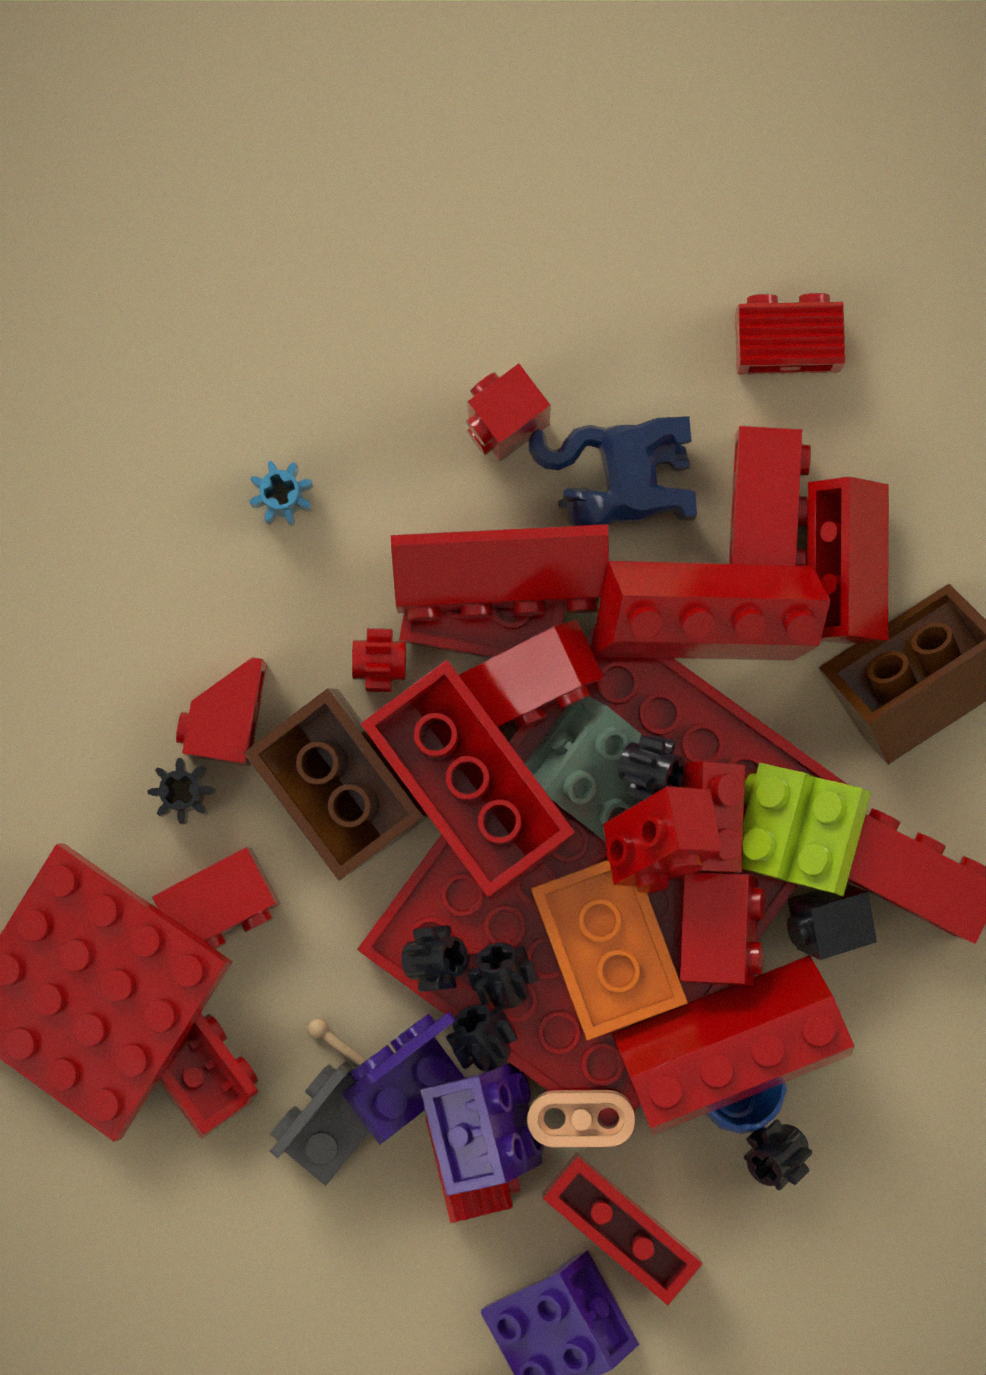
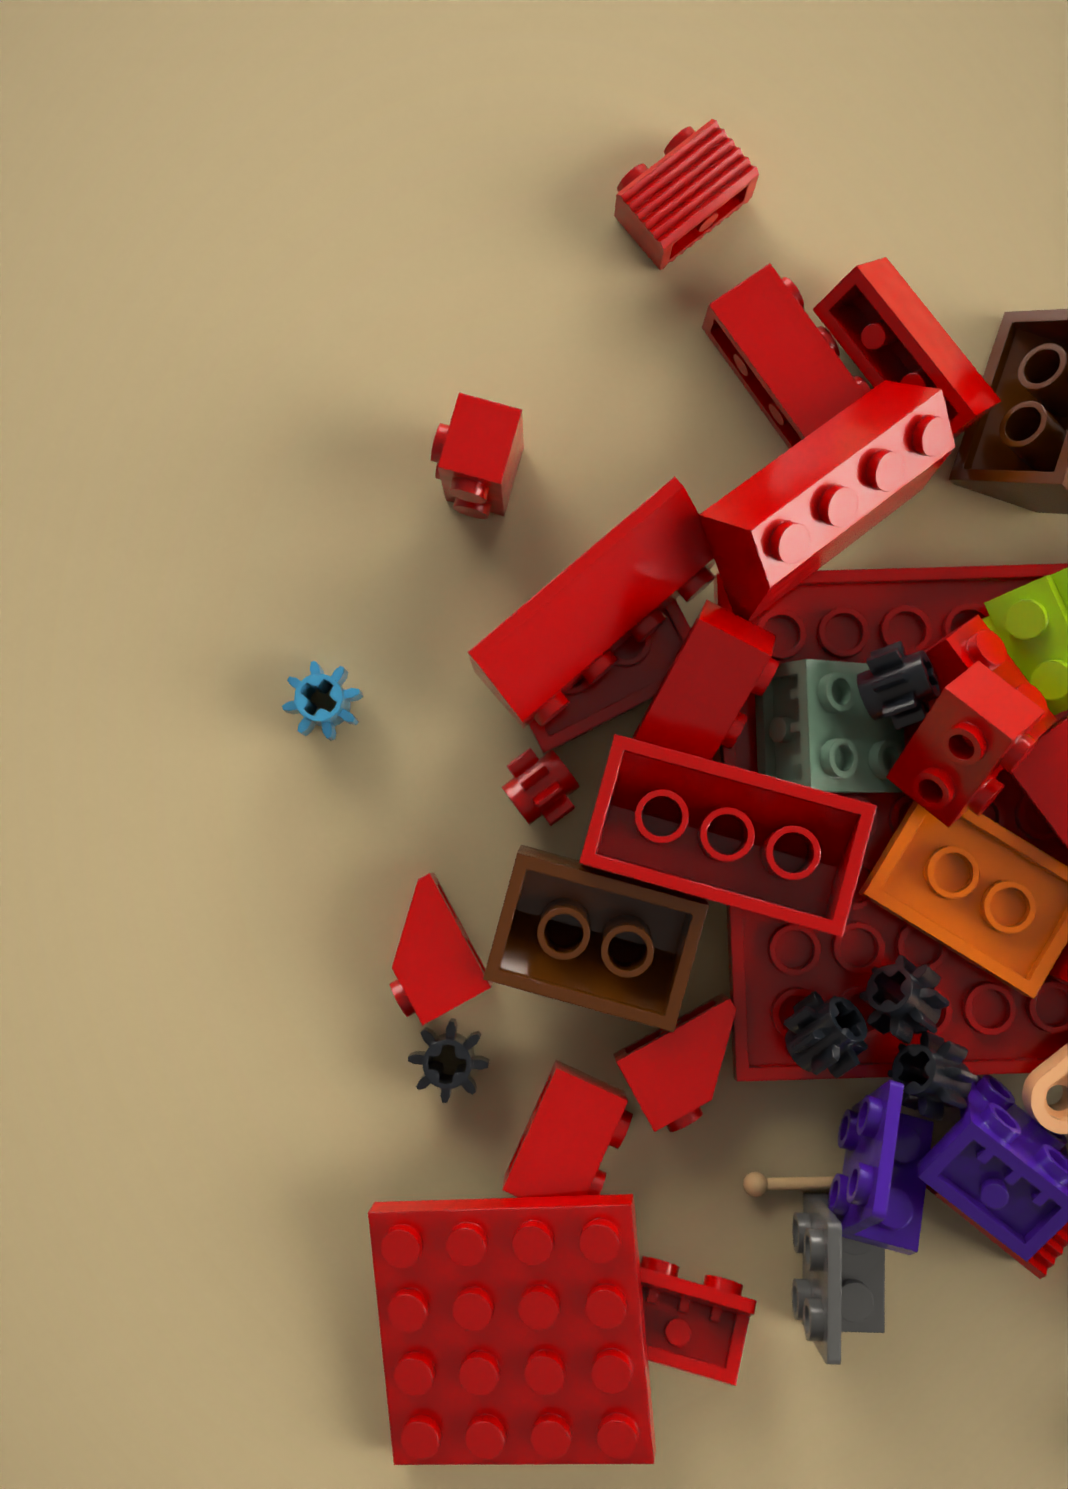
camera: 40 degrees left, 0 degrees up
(326, 910) = (679, 1068): none -> red slope
(629, 465) = (636, 427): dark blue animal -> none

